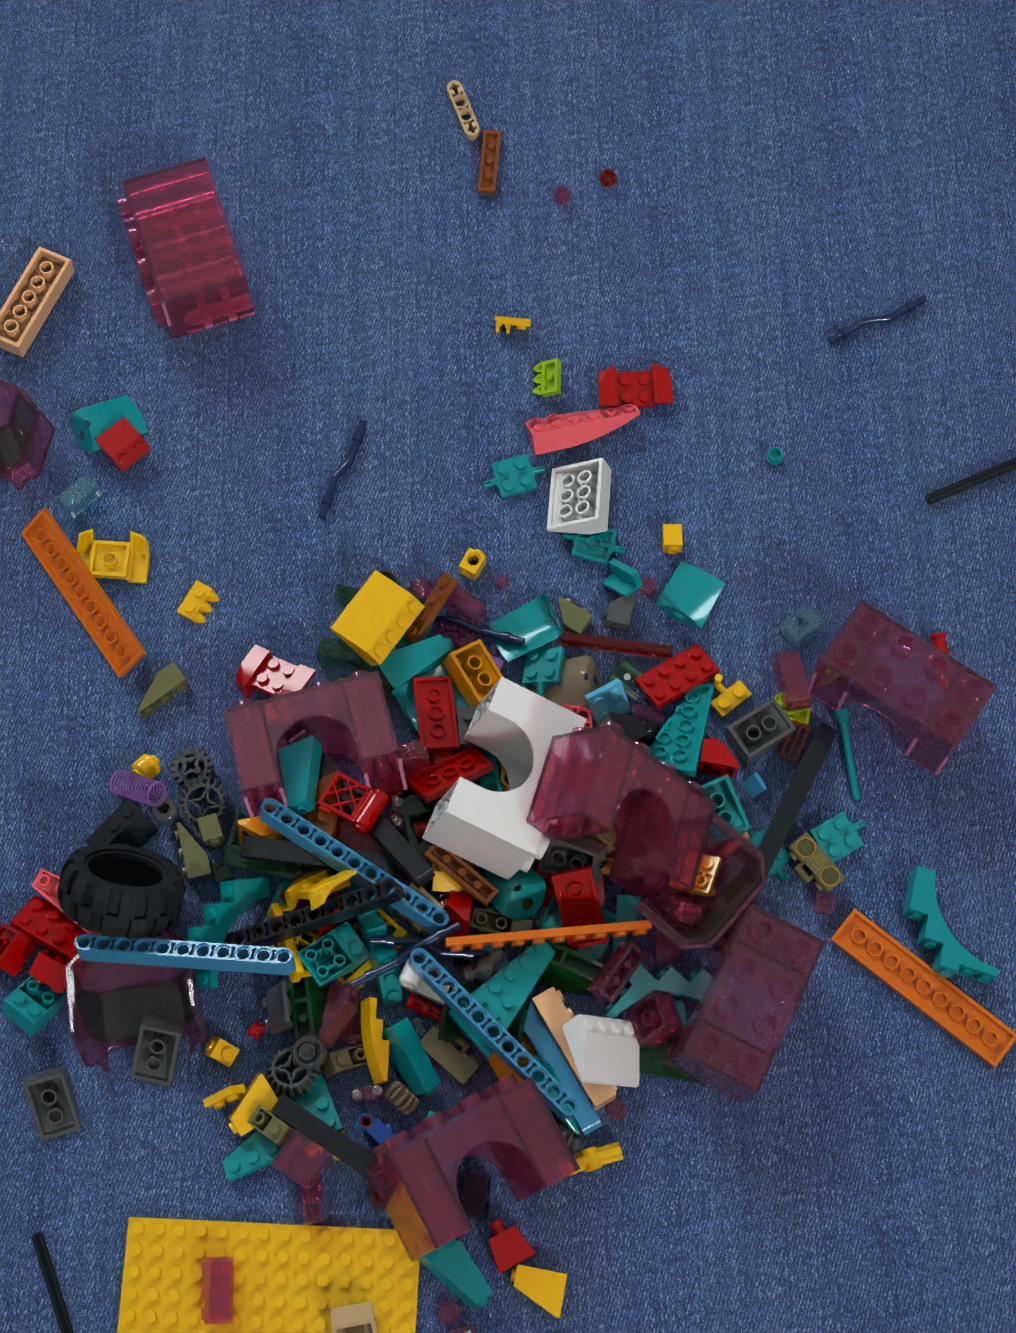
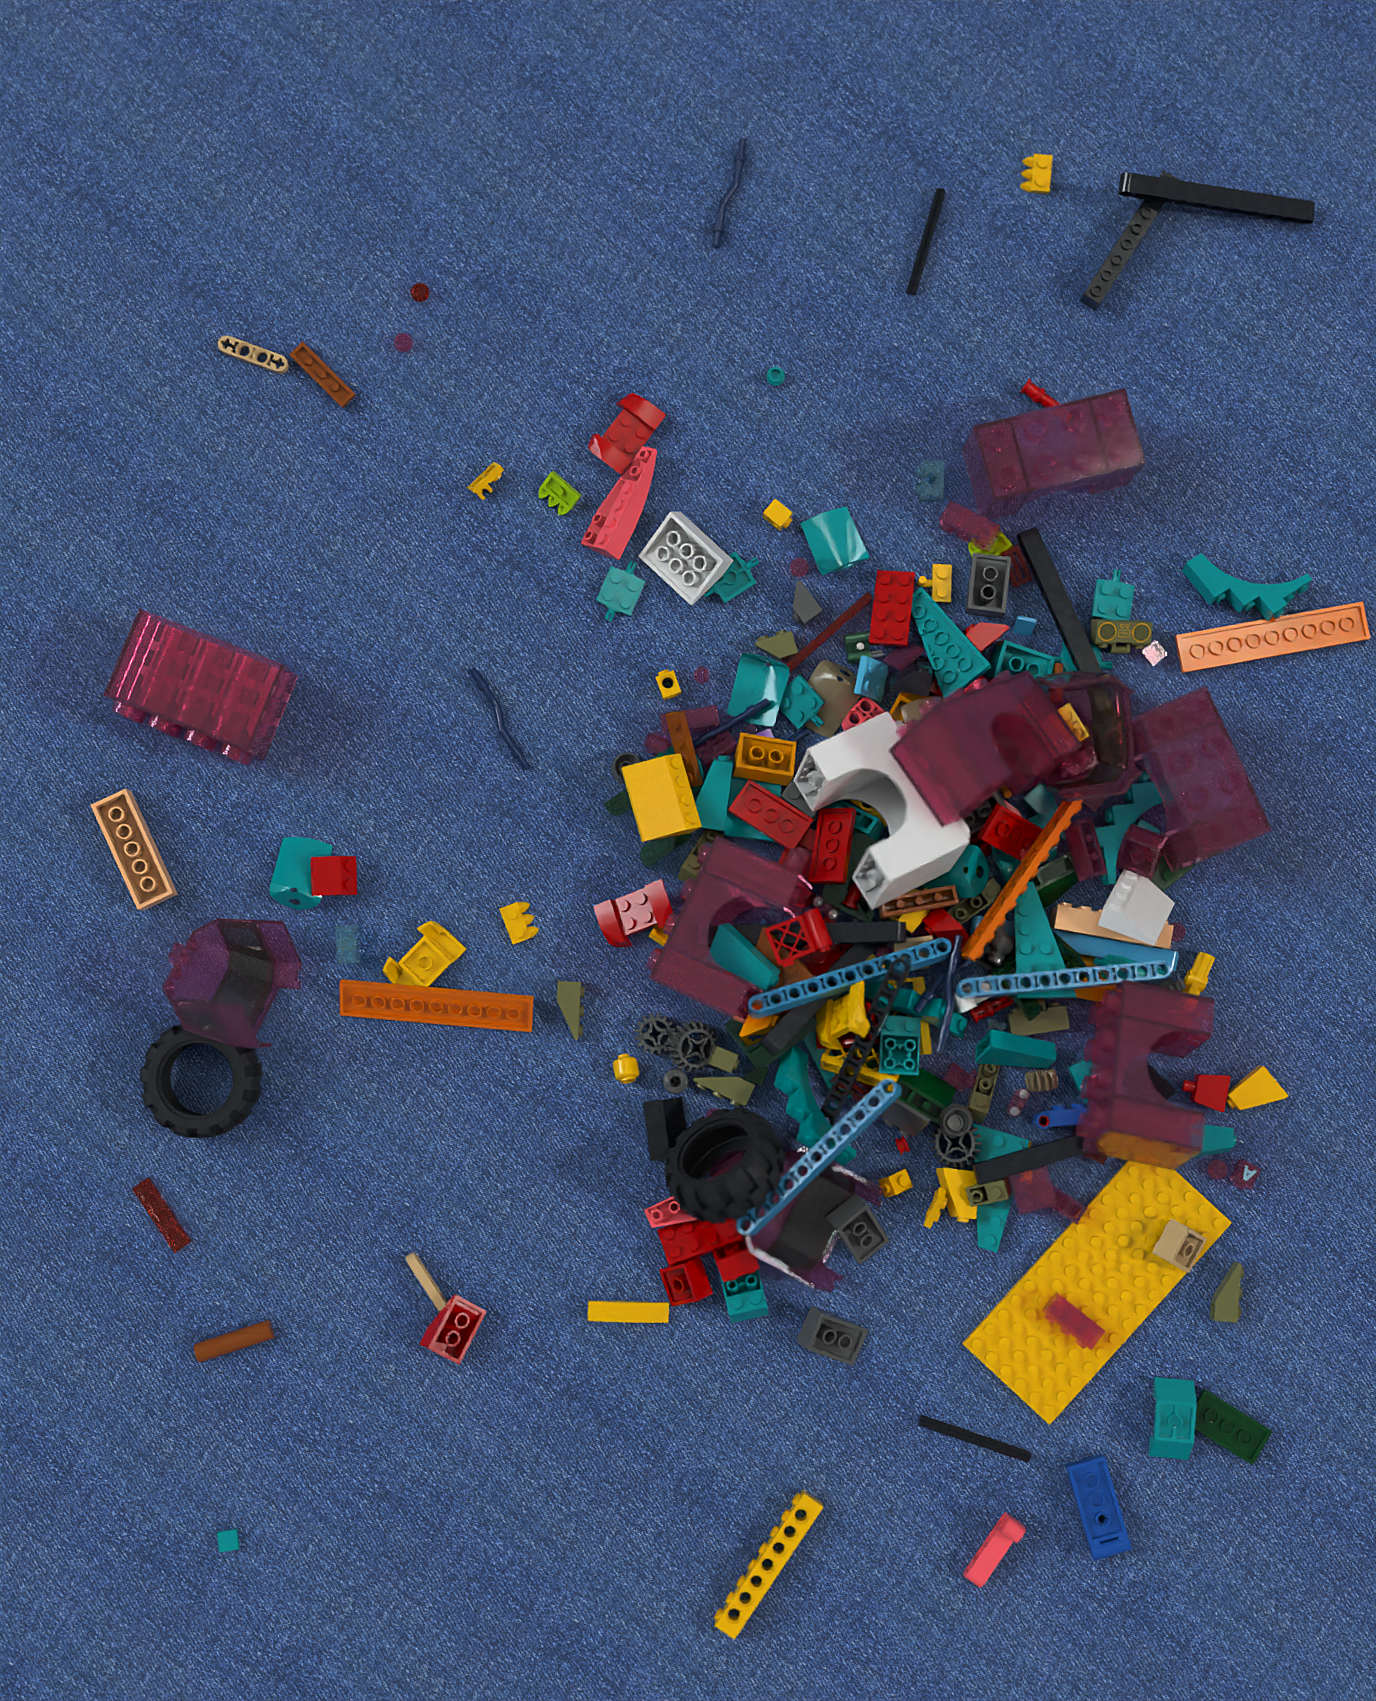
camera: 50 degrees left, 15 degrees up
(124, 793) = (628, 1096): medium lavender piece -> none
(339, 1010) = (942, 1072): clear pink slope -> none
(375, 1048) = (981, 1065): yellow slope -> none
(623, 579) = (781, 582): teal panel -> none
(842, 717) = (1026, 514): teal piece -> none

